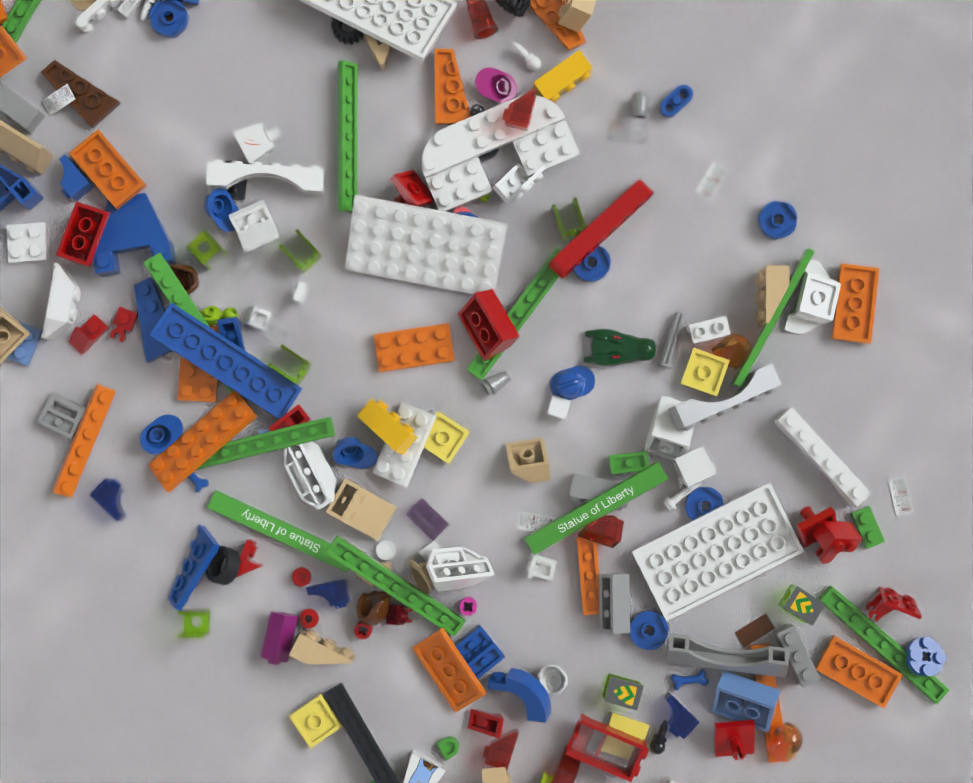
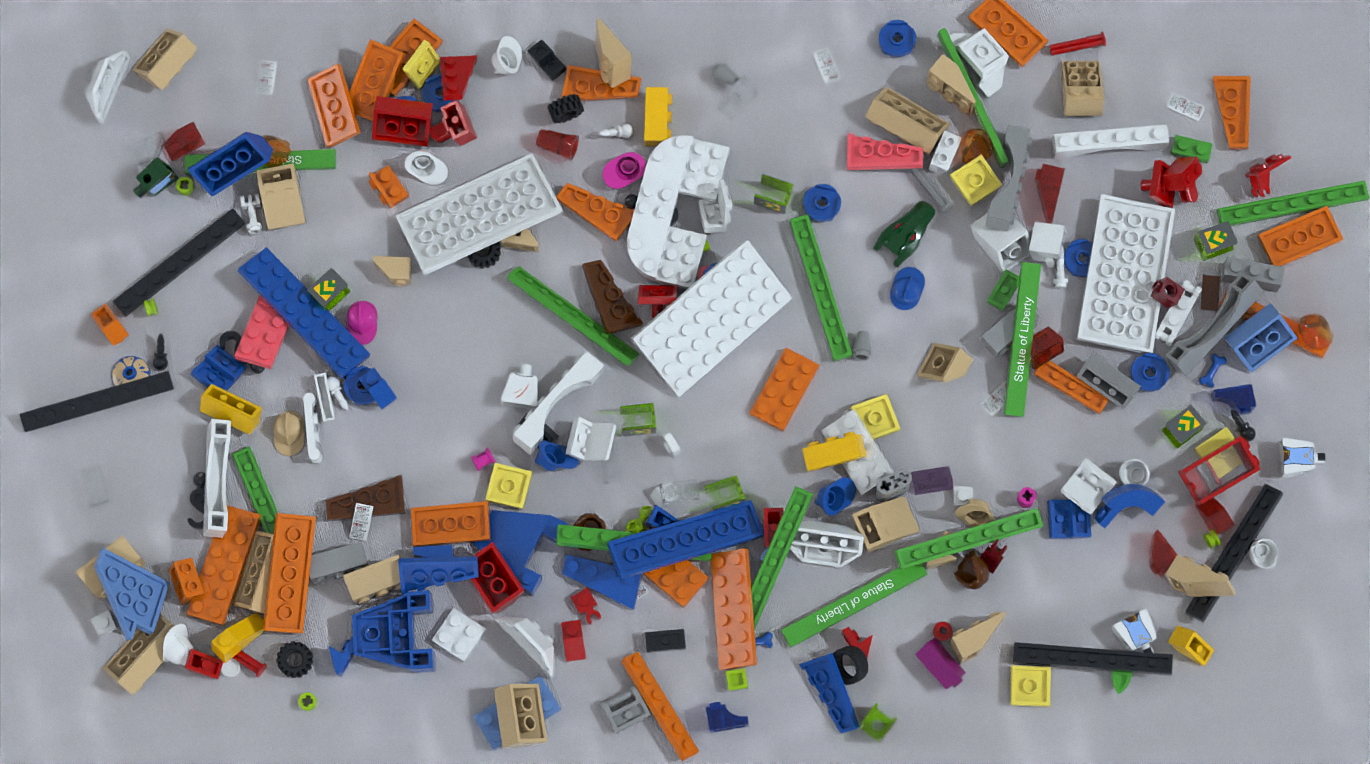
camera: 50 degrees left, 10 degrees down
(49, 181) = (426, 572): none -> blue wing
(139, 406) = (665, 640): none -> black plate
(149, 485) = (736, 679): none -> lime plate
(161, 433) = (702, 636): blue piece -> none
(171, 30) = (377, 388): none -> blue slope
(172, 191) = (508, 486): none -> light yellow plate
(178, 155) = (483, 459): none -> dark pink bush
(215, 247) = (583, 499): clear neon green piece -> none
(301, 576) = (904, 613): red plate -> none
(334, 592) = (937, 594): clear blue arch -> none
(360, 634) = (985, 600): red bush -> none
(382, 155) = (609, 300): none -> reddish brown wing
(385, 550) = (931, 531): white piece -> none
(393, 488) = (889, 484): none -> light grey connector
(448, 747) = (1129, 597): bright green tile -> none
(449, 670) = (1067, 548): orange plate -> none
(457, 568) = (991, 481): white wedge -> none
(486, 722) = (1131, 550): red slope -> none
(488, 324) = (812, 315): red slope -> none
(512, 649) = (1088, 486): none -> white bracket
(520, 111) = (664, 165): clear red slope -> none
(541, 568) = (1038, 417): white bracket -> none
(559, 407) = (919, 312): white slope -> none
(600, 229) = (802, 174): red beam -> none
(662, 272) = (872, 154): none -> coral wing
(675, 102) = (743, 46): blue plate -> none
(713, 279) = (907, 120): none -> tan slope
(717, 616) = (1177, 314): none -> white plate
(727, 604) = (1173, 295): none -> dark red brick
(734, 738) = (1283, 368): red tile -> none
(744, 435) = (1048, 188): none -> clear red slope
(851, 401) = (1082, 88): none -> tan slope
(886, 369) = (1078, 44): none -> red axle
(933, 535) = (1234, 105): none -> orange wing
(935, 654) = (1329, 170): plate -> none

